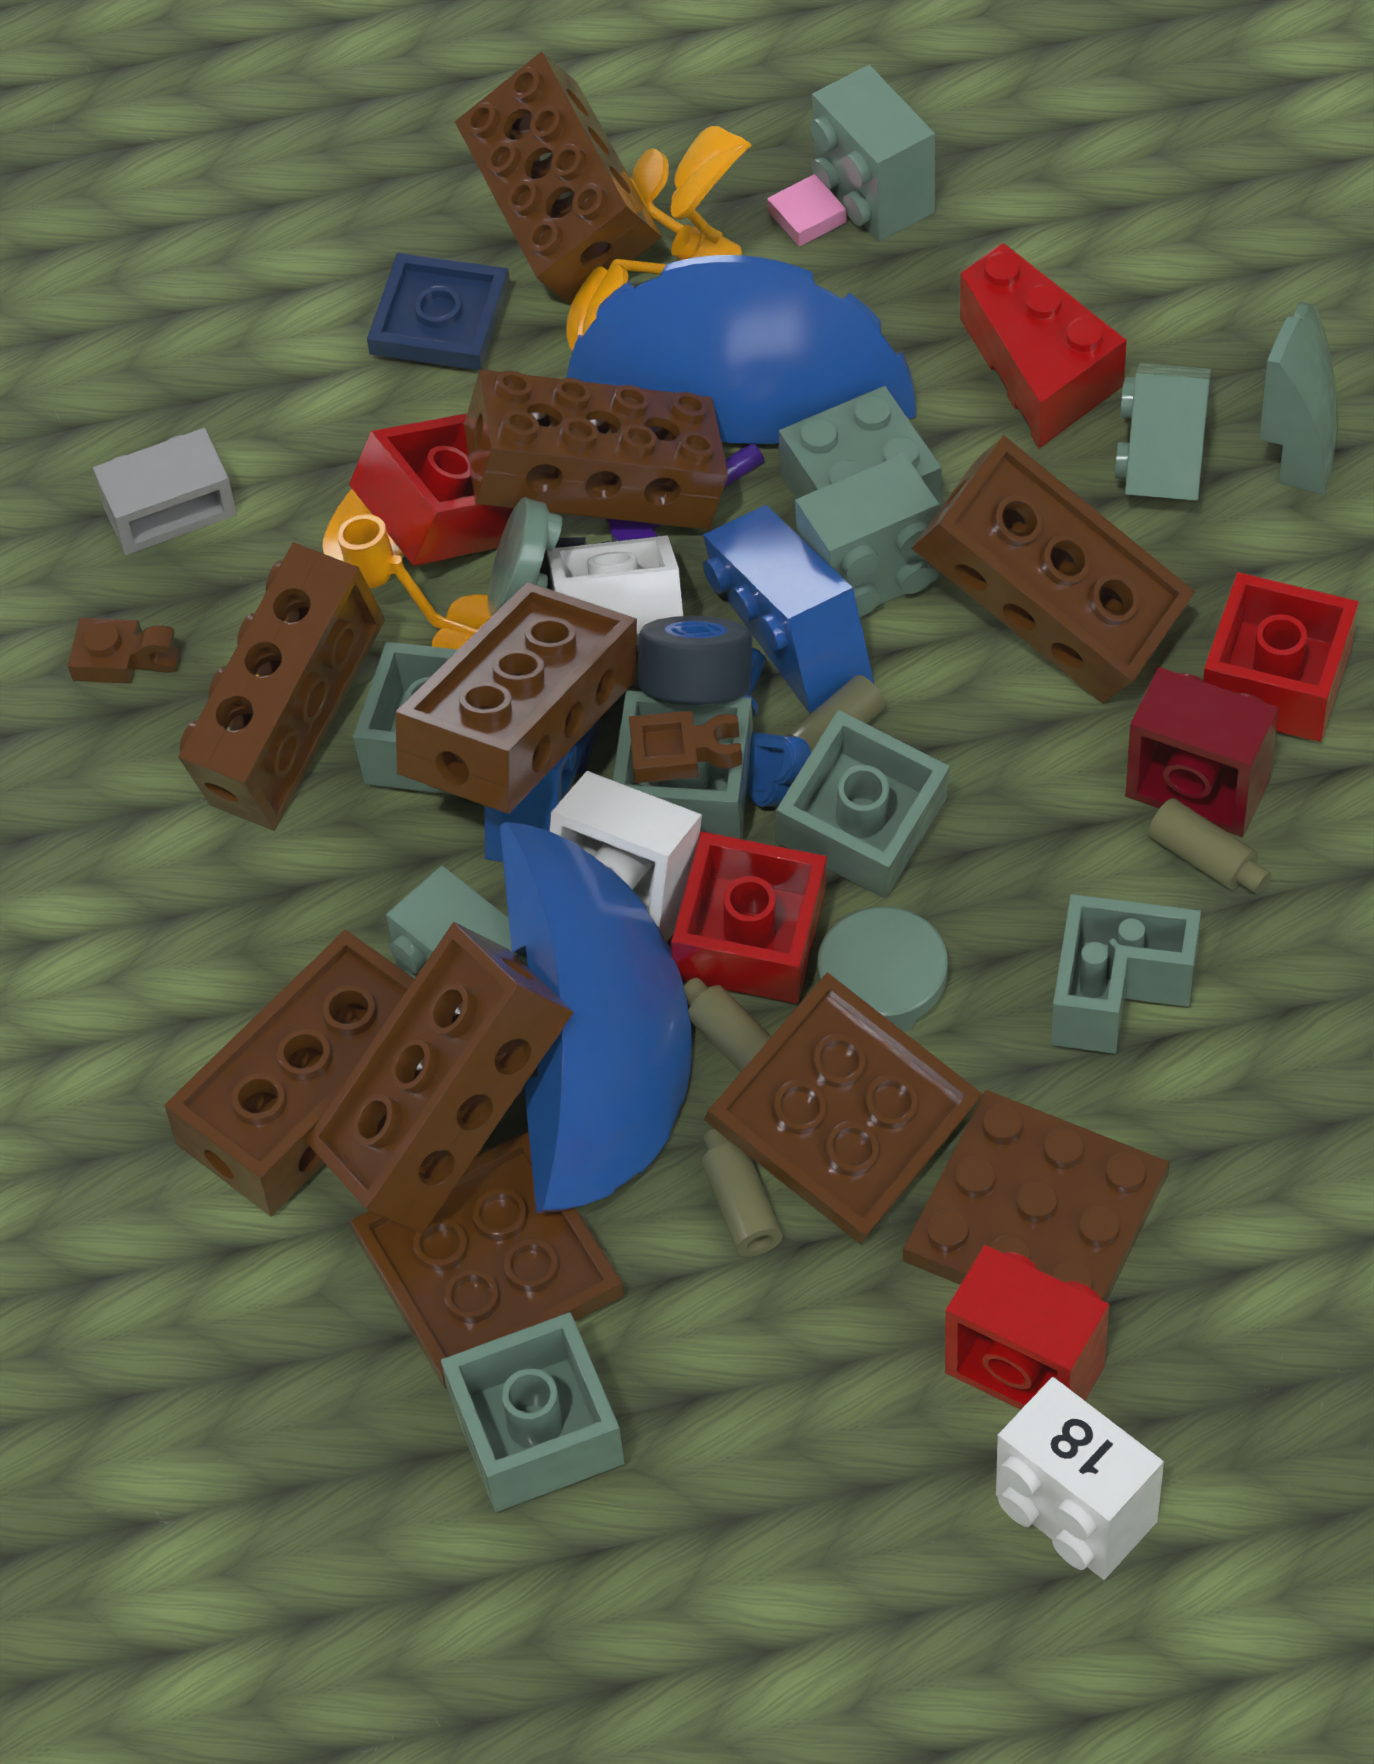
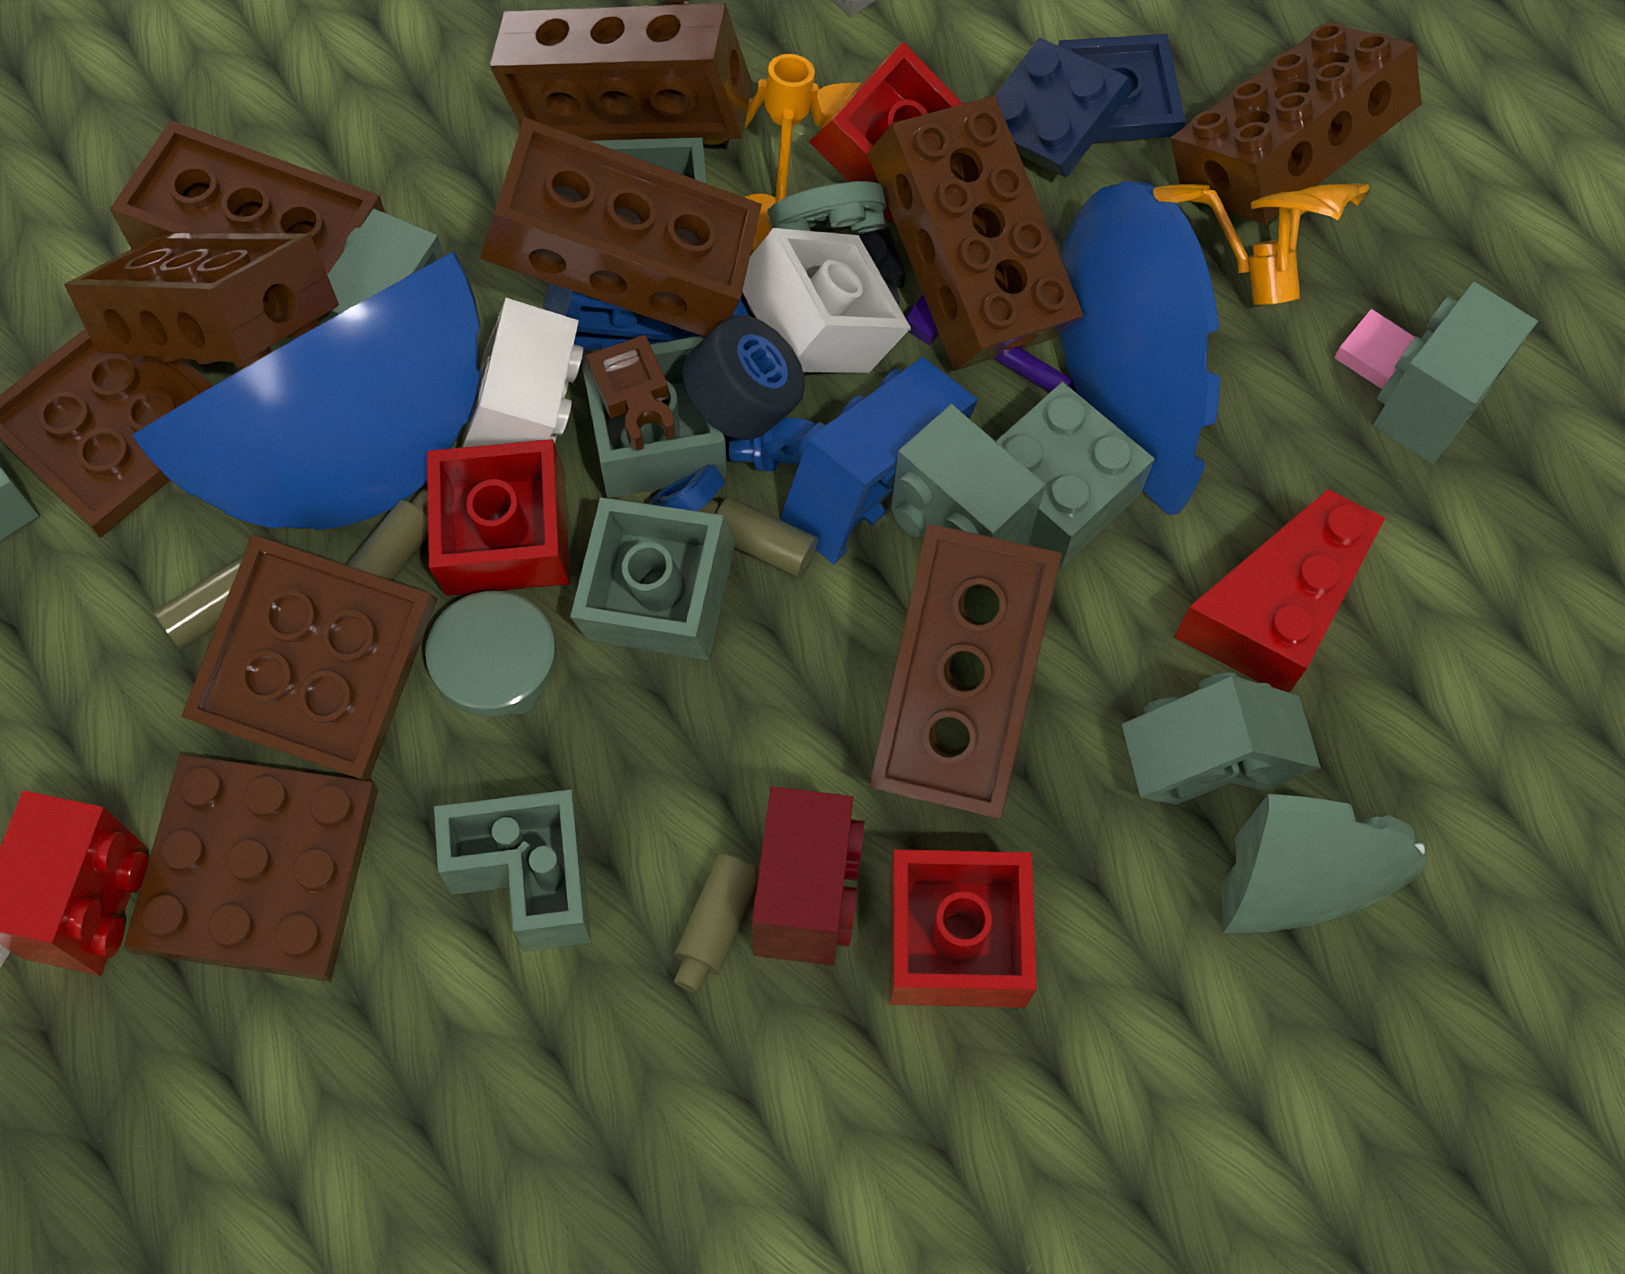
camera: 65 degrees right, 10 degrees up
(439, 354) = (1059, 104): none -> dark blue plate

